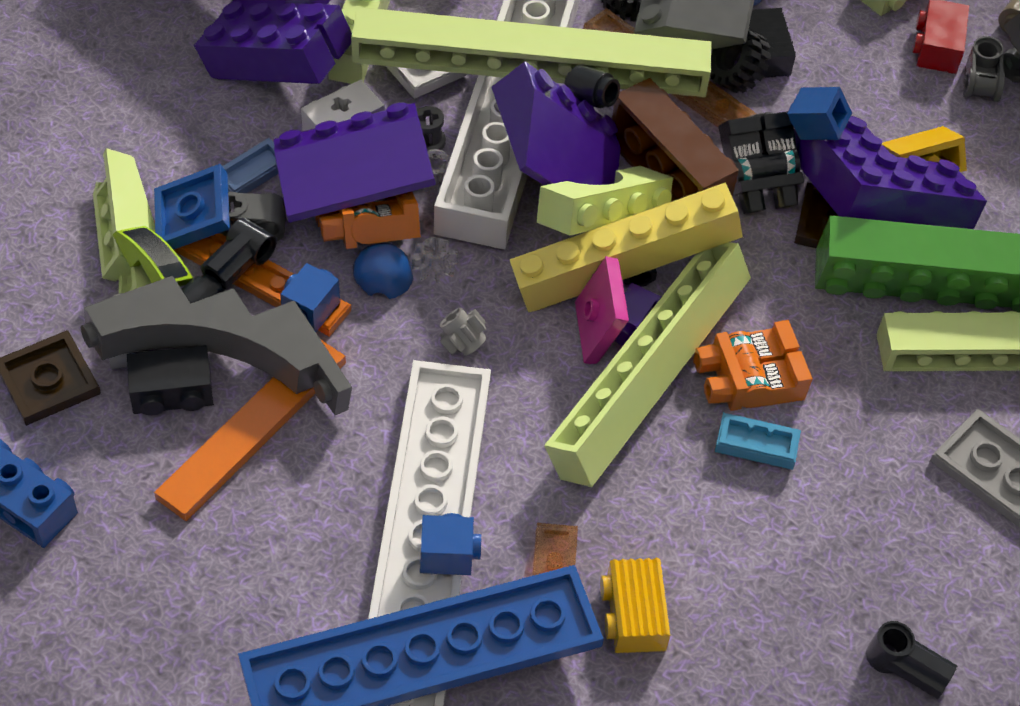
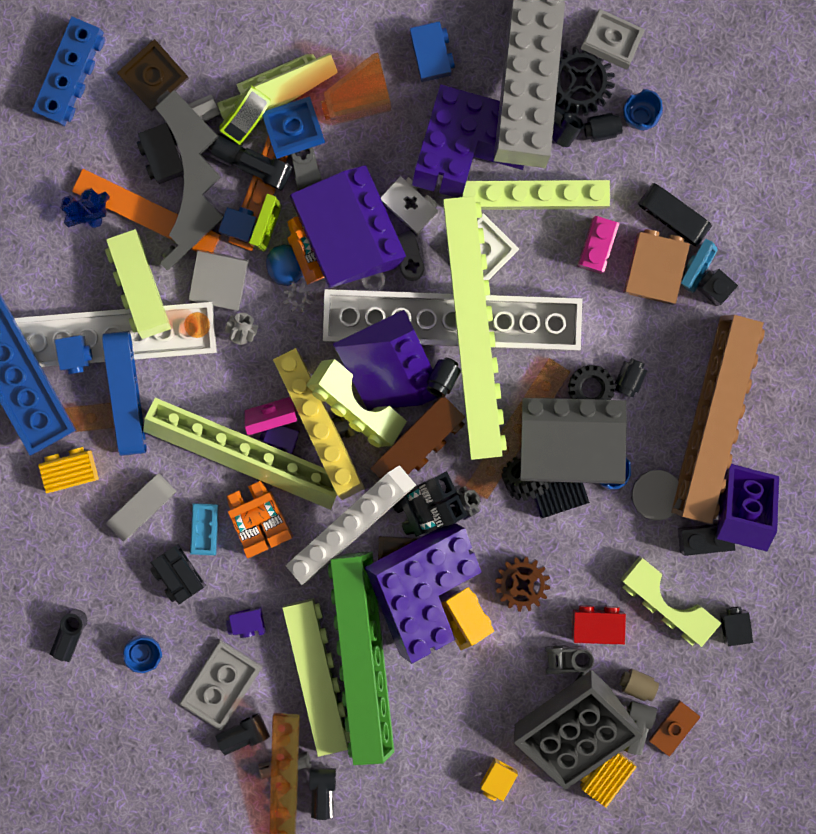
camera: 80 degrees right, 35 degrees up
(145, 60) = (431, 51): none -> blue brick
(170, 122) = (358, 94): none -> clear orange slope
(222, 489) = (88, 209): none -> clear blue hips
(252, 168) = (353, 152): medium blue tile -> none
(321, 241) = (266, 223): none -> lime tile
(360, 438) = (138, 284): none -> yellowish green brick
(382, 349) = (218, 280): none -> light grey tile
(444, 376) = (197, 325): none -> clear orange plate
(526, 492) = (124, 393): none -> blue beam
(714, 515) = (141, 507): none -> light grey beam
(782, 229) = (351, 524): none -> white brick
(819, 113) = (445, 540): blue brick -> none
(825, 486) = (177, 574): none -> black brick
(879, 97) = (512, 591): none -> reddish brown gear
(907, 409) = (246, 622): none -> dark purple brick
(944, 544) = (142, 654): none -> blue hair

